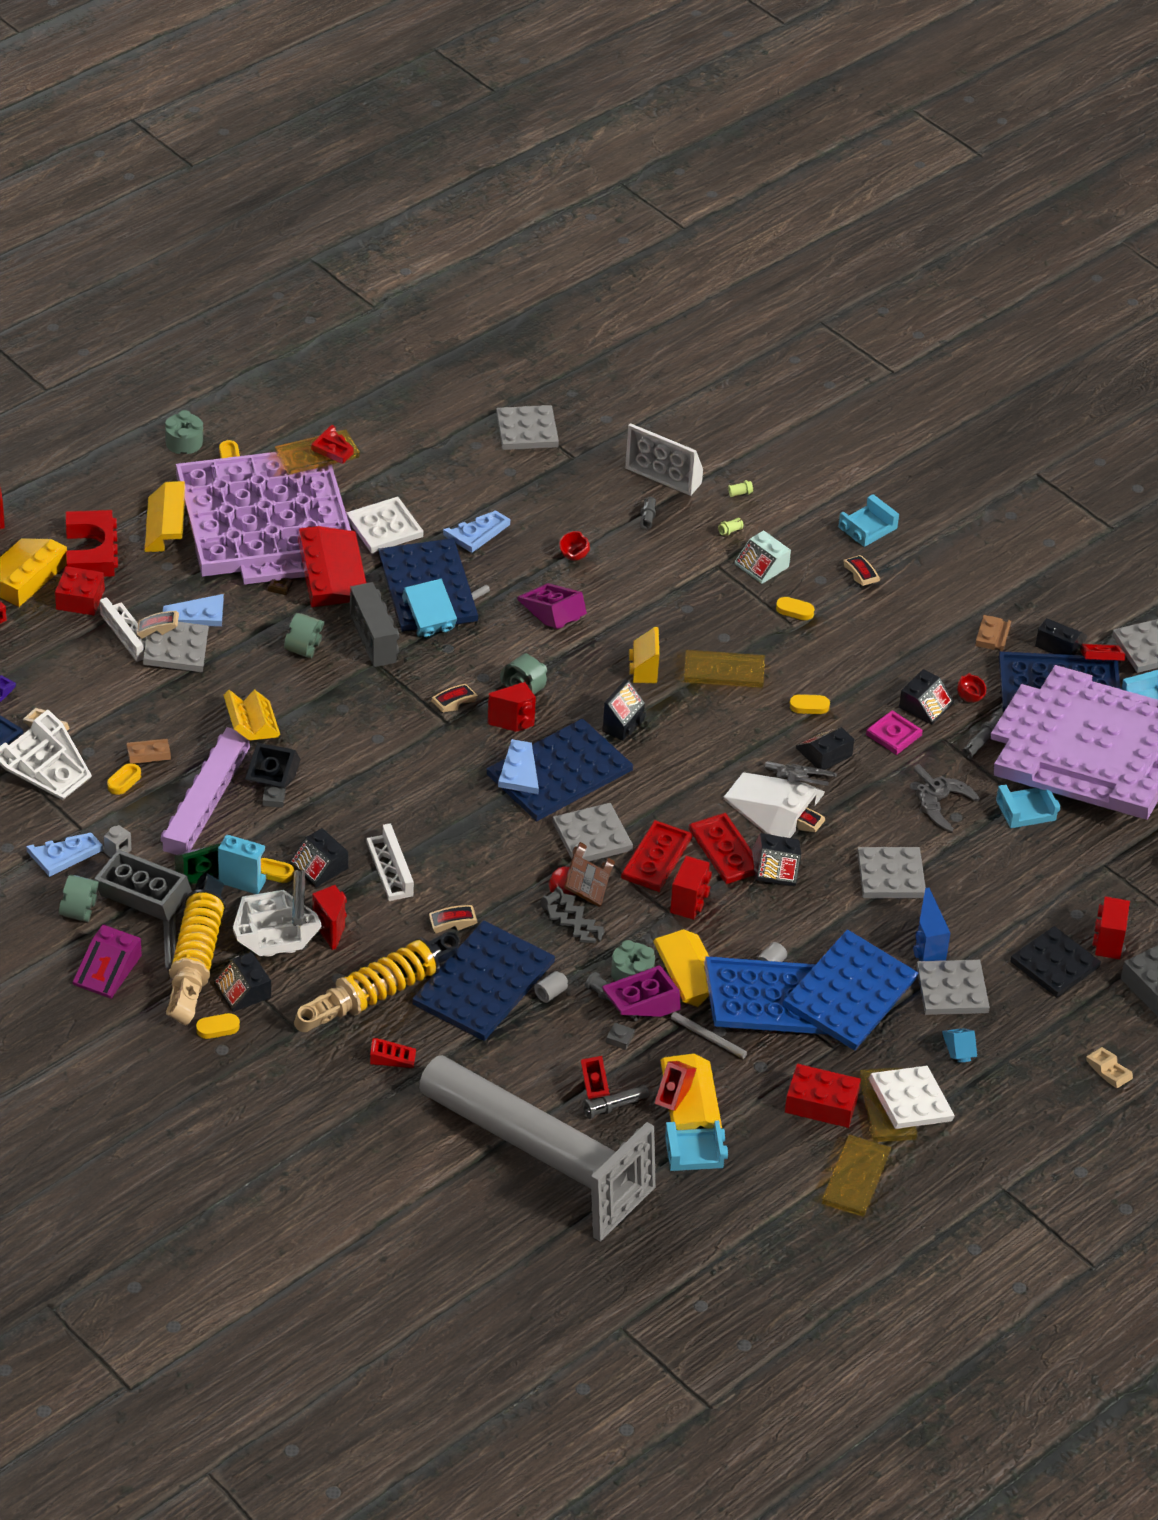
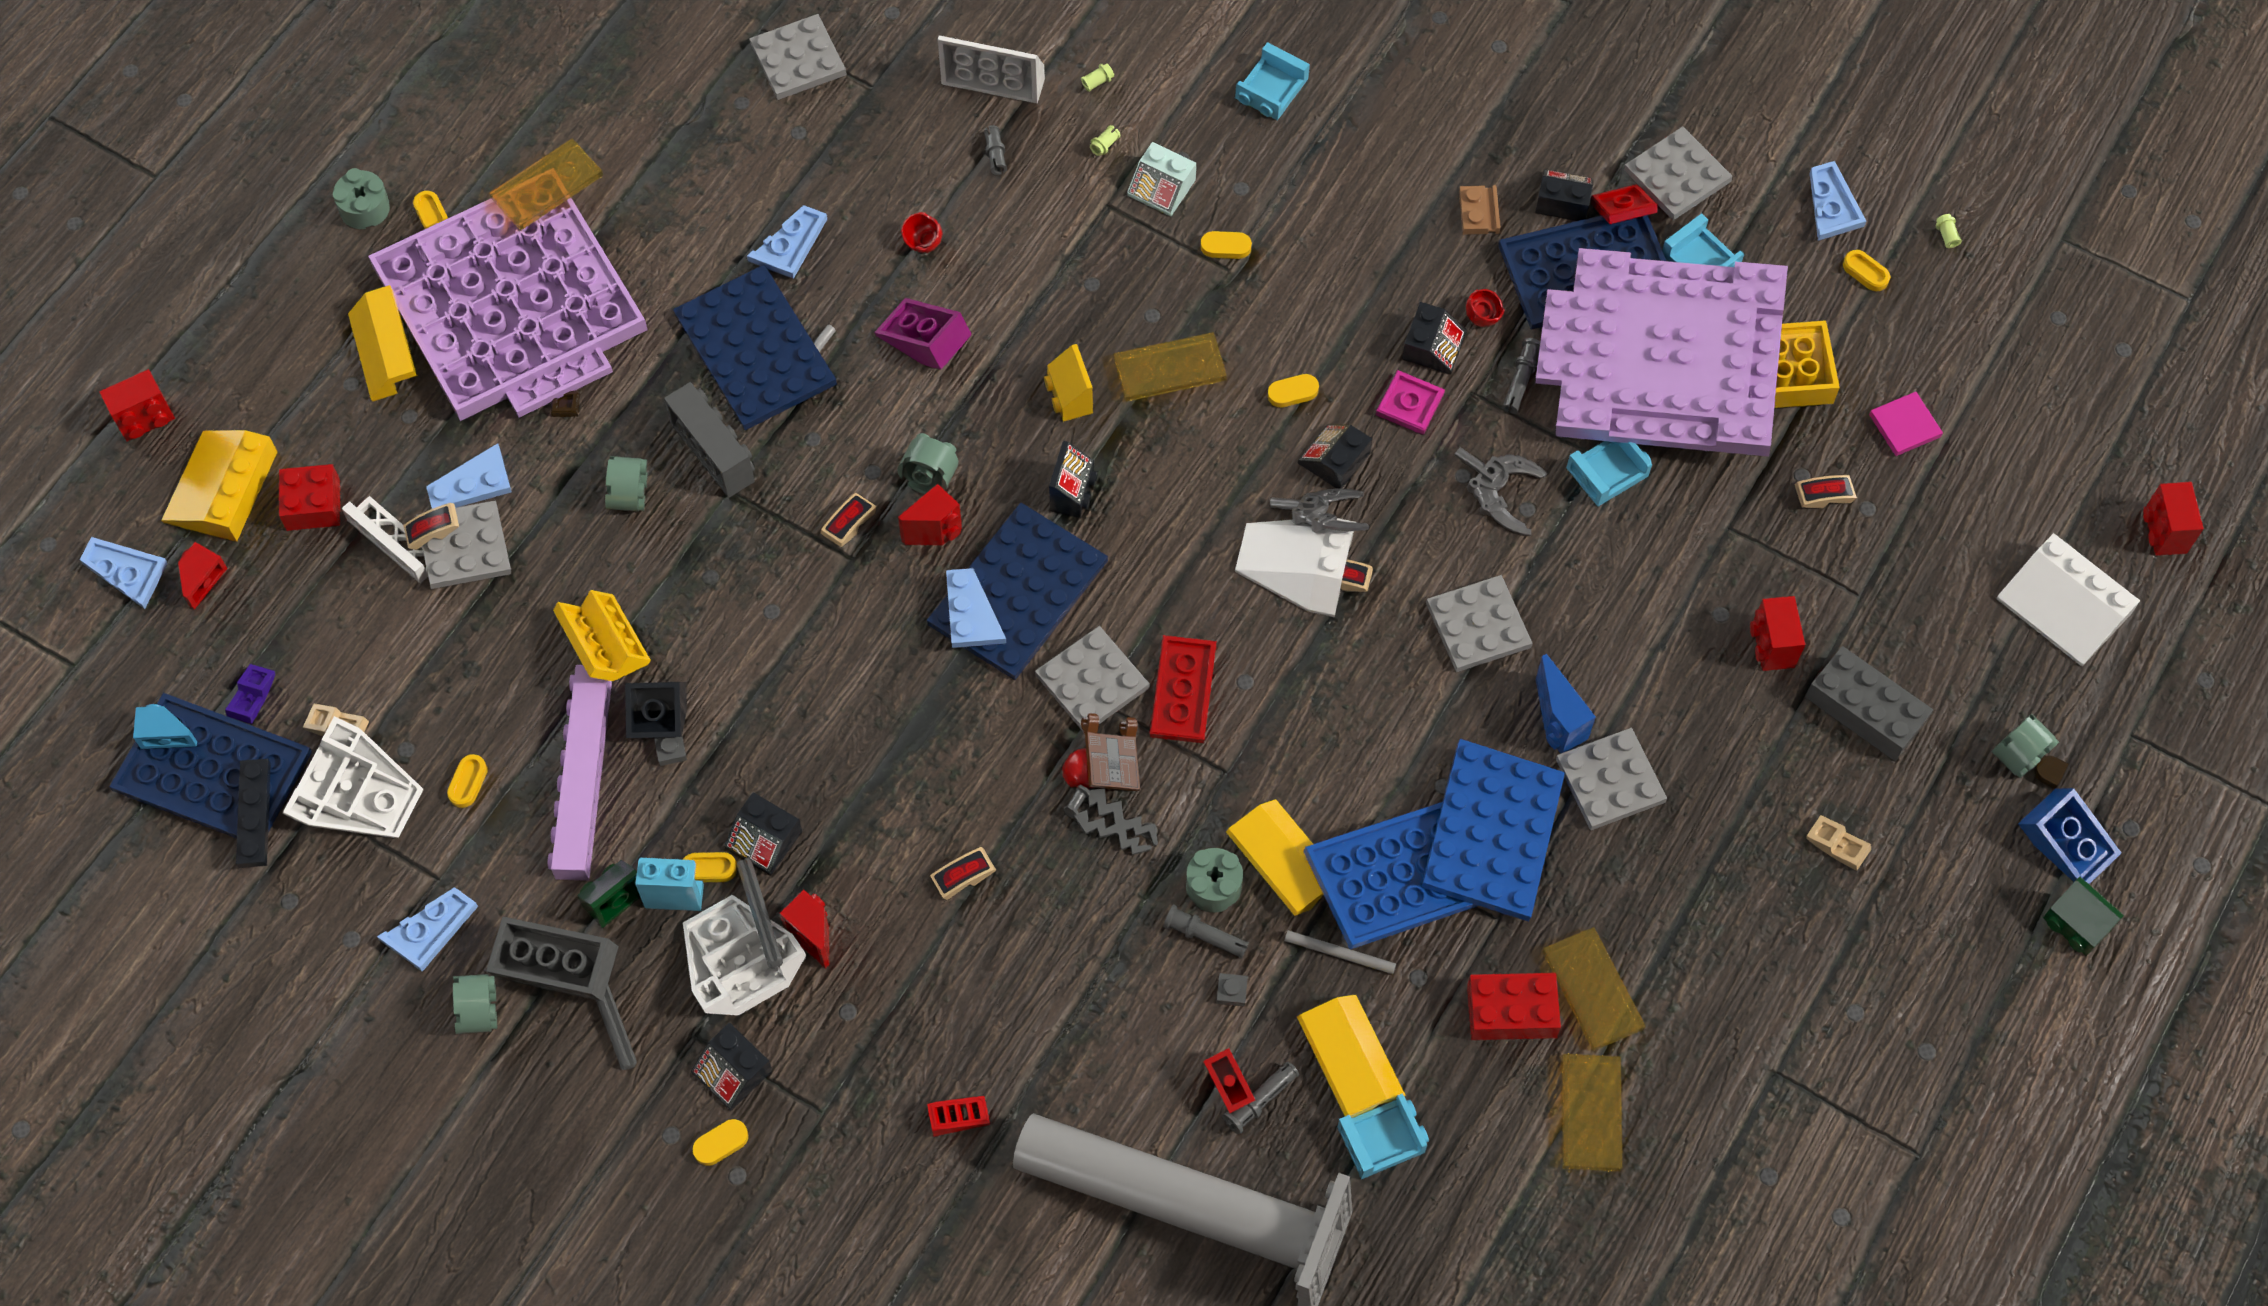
camera: 15 degrees left, 20 degrees up
(97, 526) = (301, 382): red arch -> none
(108, 961) = (545, 1090): magenta slope -> none
(117, 837) = (490, 890): light grey brick -> none
(148, 751) = (485, 728): medium nougat plate -> none
(195, 947) = (651, 1037): piece -> none
(330, 564) = (625, 360): red slope -> none
(333, 446) = (565, 173): red wing -> none
(378, 980) = (904, 1010): piece -> none
(384, 524) = (668, 268): white plate -> none
(403, 877) = (863, 804): white fence -> none
(430, 607) = (773, 390): medium azure panel -> none
(483, 980) = (1032, 957): dark blue plate -> none
(551, 986) = (1122, 943): light grey brick -> none
(644, 993) = (1244, 925): magenta slope -> none
(675, 1084) = (1333, 1060): red slope -> none
(690, 887) = (1248, 736): red brick -> none
(724, 847) = (1264, 650): red tile -> none
(773, 952) = (1378, 806): light grey brick -> none
(776, 859) = (1336, 655): slope -> none
(862, 570) = (1290, 161): slope -> none
(911, 1097) = (1621, 973): white plate -> none
(961, 1044) = (1651, 867): dark azure slope -> none
(1055, 961) = (1720, 698): black plate -> none

